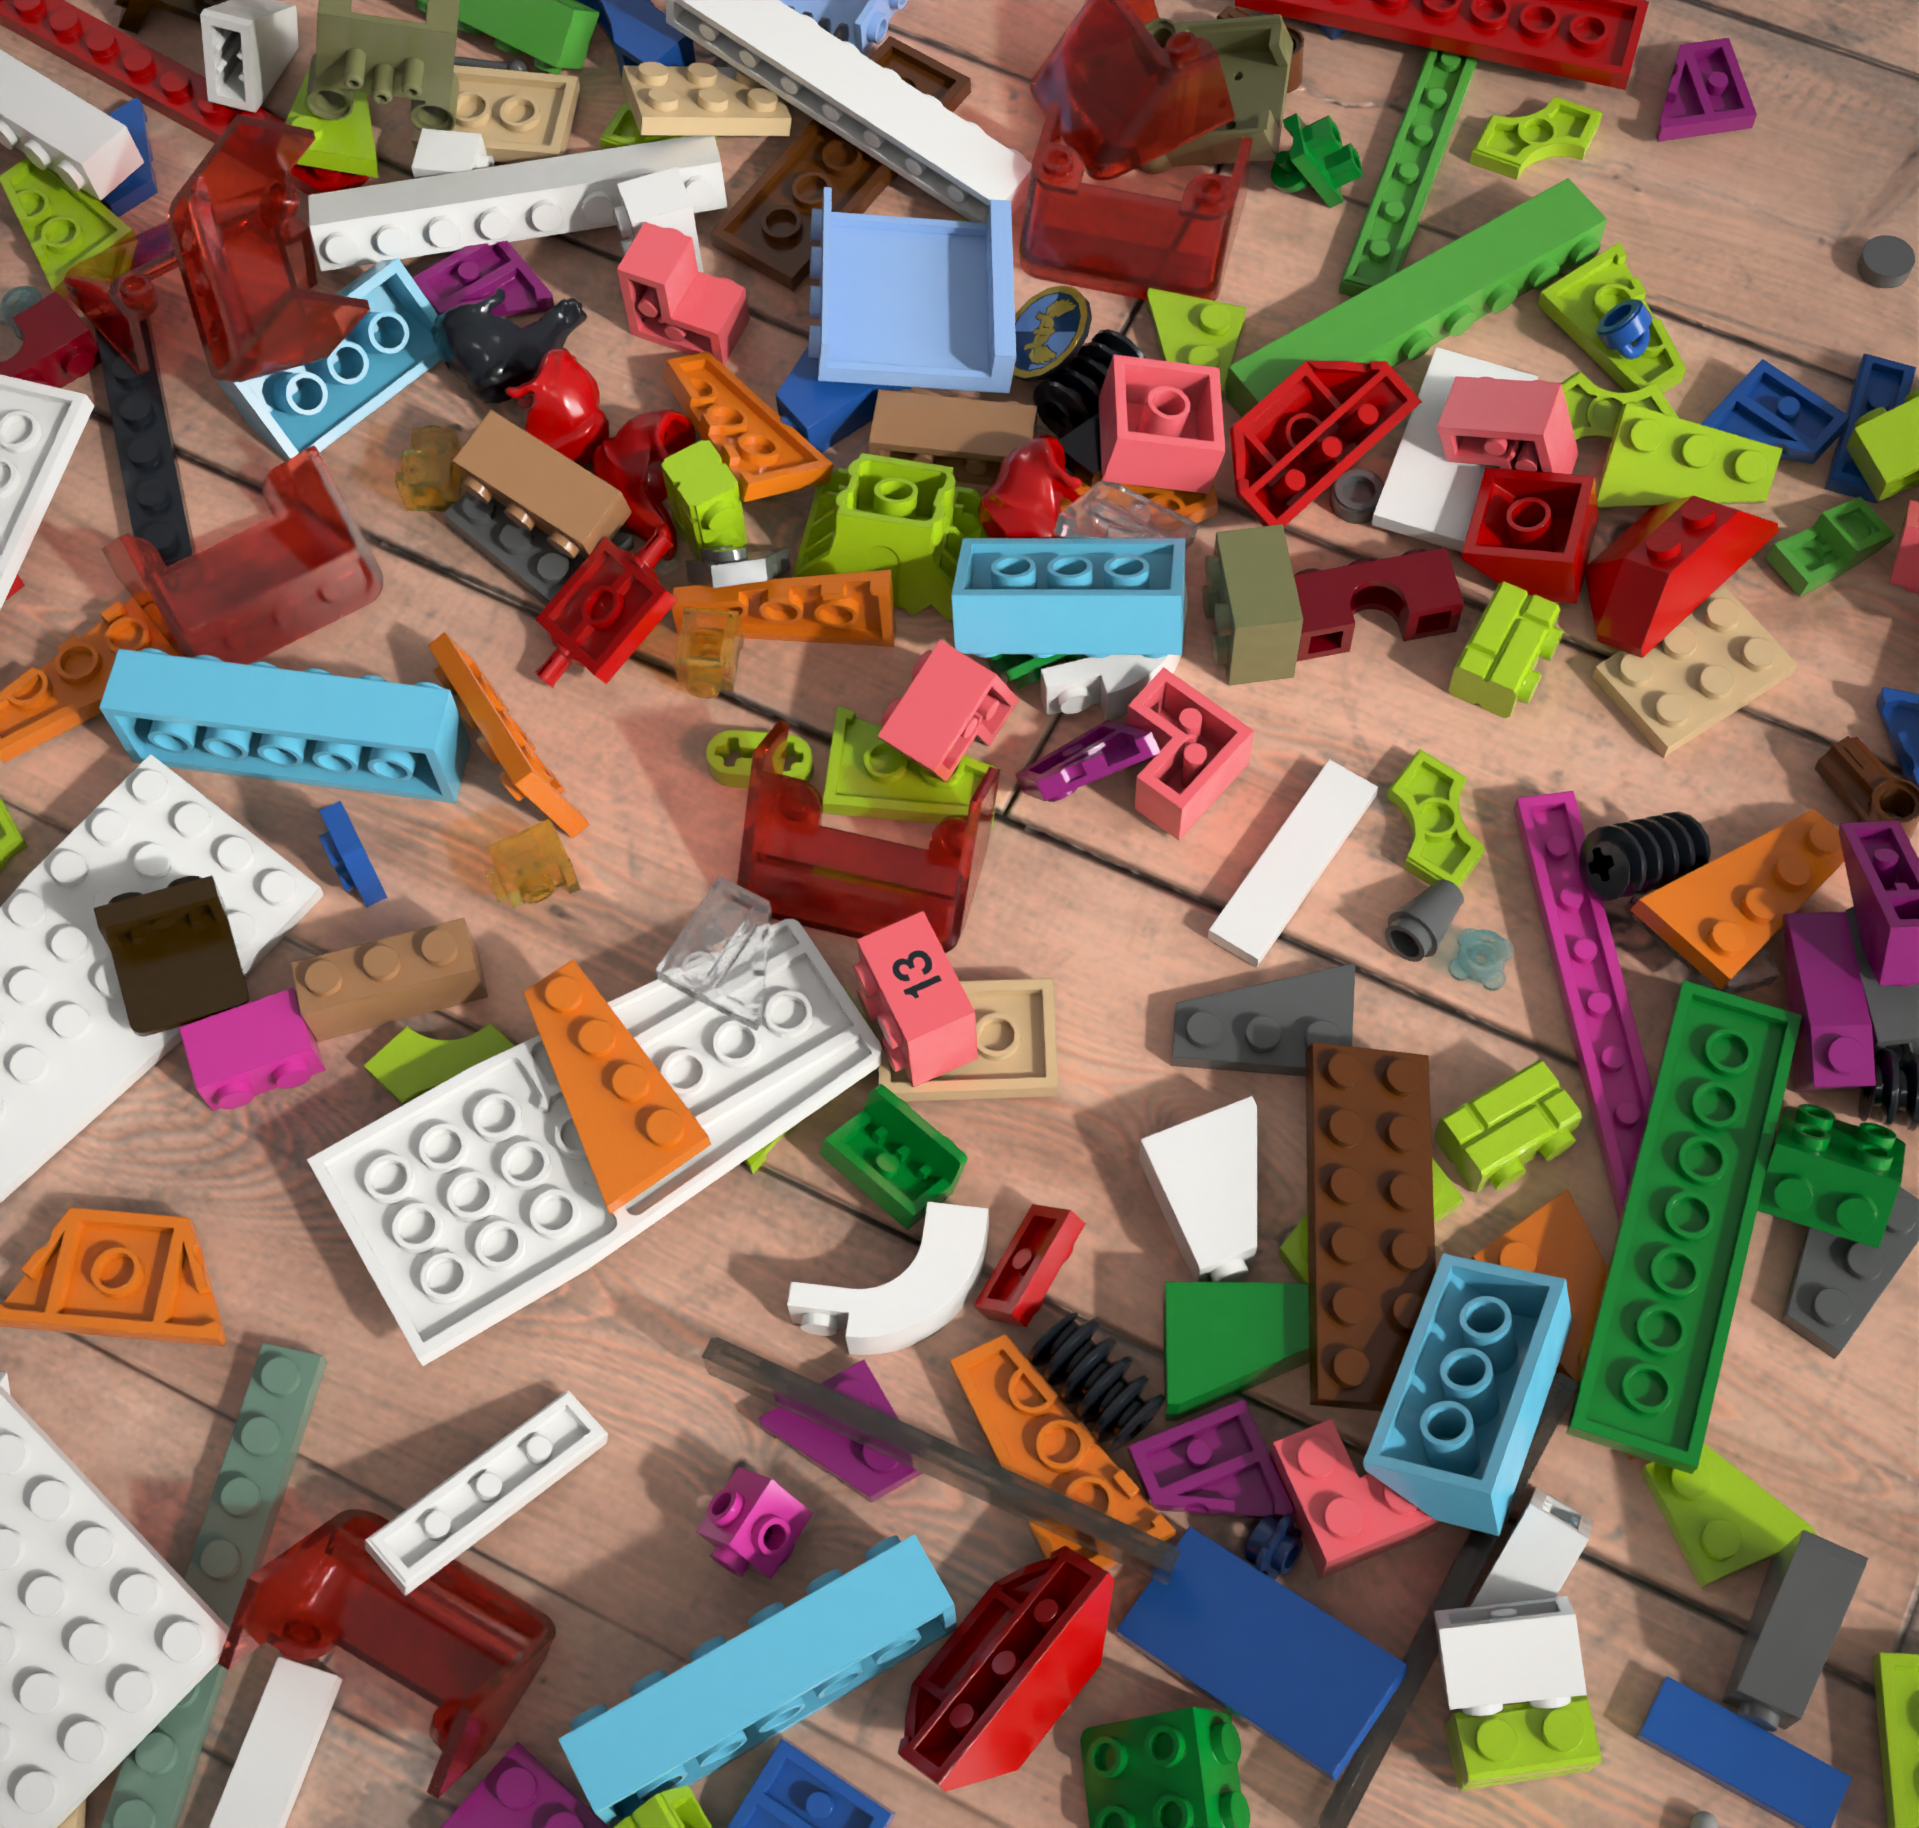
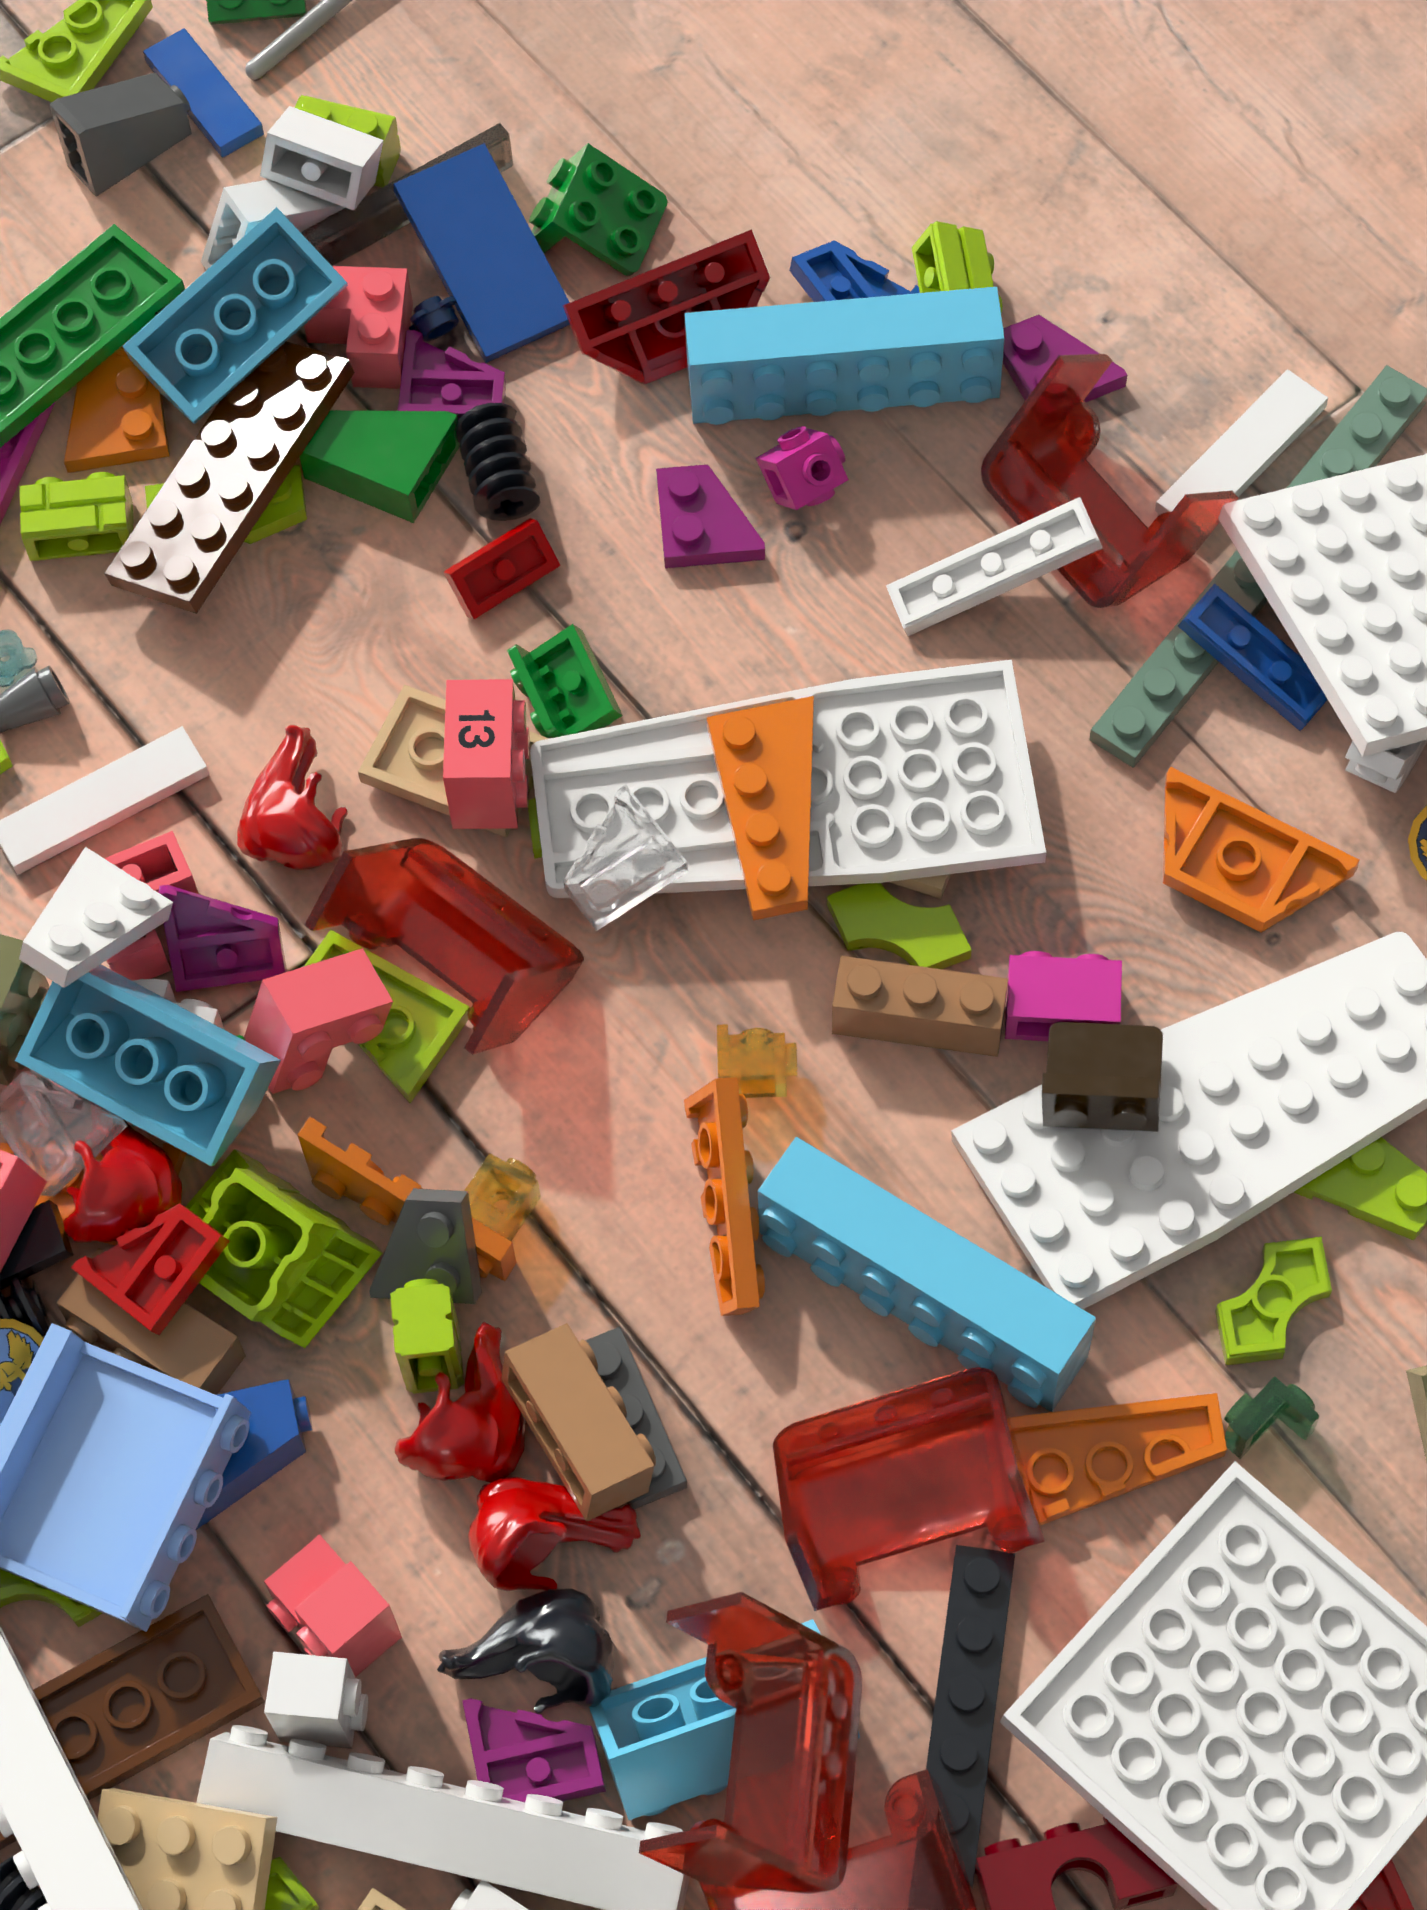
camera: 155 degrees left, 0 degrees up
(178, 1514) = (1255, 656): none -> blue tile
(349, 855) = (913, 1130): blue wing -> none
(427, 473) = (676, 1533): clear yellow brick -> none
(605, 610) = (575, 1275): red plate -> none
(744, 430) = (349, 1391): orange wing -> none
(746, 742) = (496, 1098): lime beam -> none
(914, 1302) = (606, 577): white arch -> none
(942, 1460) = (648, 444): clear smoke tile -> none
(963, 442) = (155, 1266): none -> red wing
(1047, 1444) = (561, 423): orange wing -> none
(1096, 900) = (282, 816): none -> red piece
(1186, 657) = (91, 919): none -> white wing
(1209, 1189) = (329, 566): white slope -> none
(1266, 1023) = (204, 674): dark grey wing -> none
(1720, 1516) = (100, 206): lime wing -> none

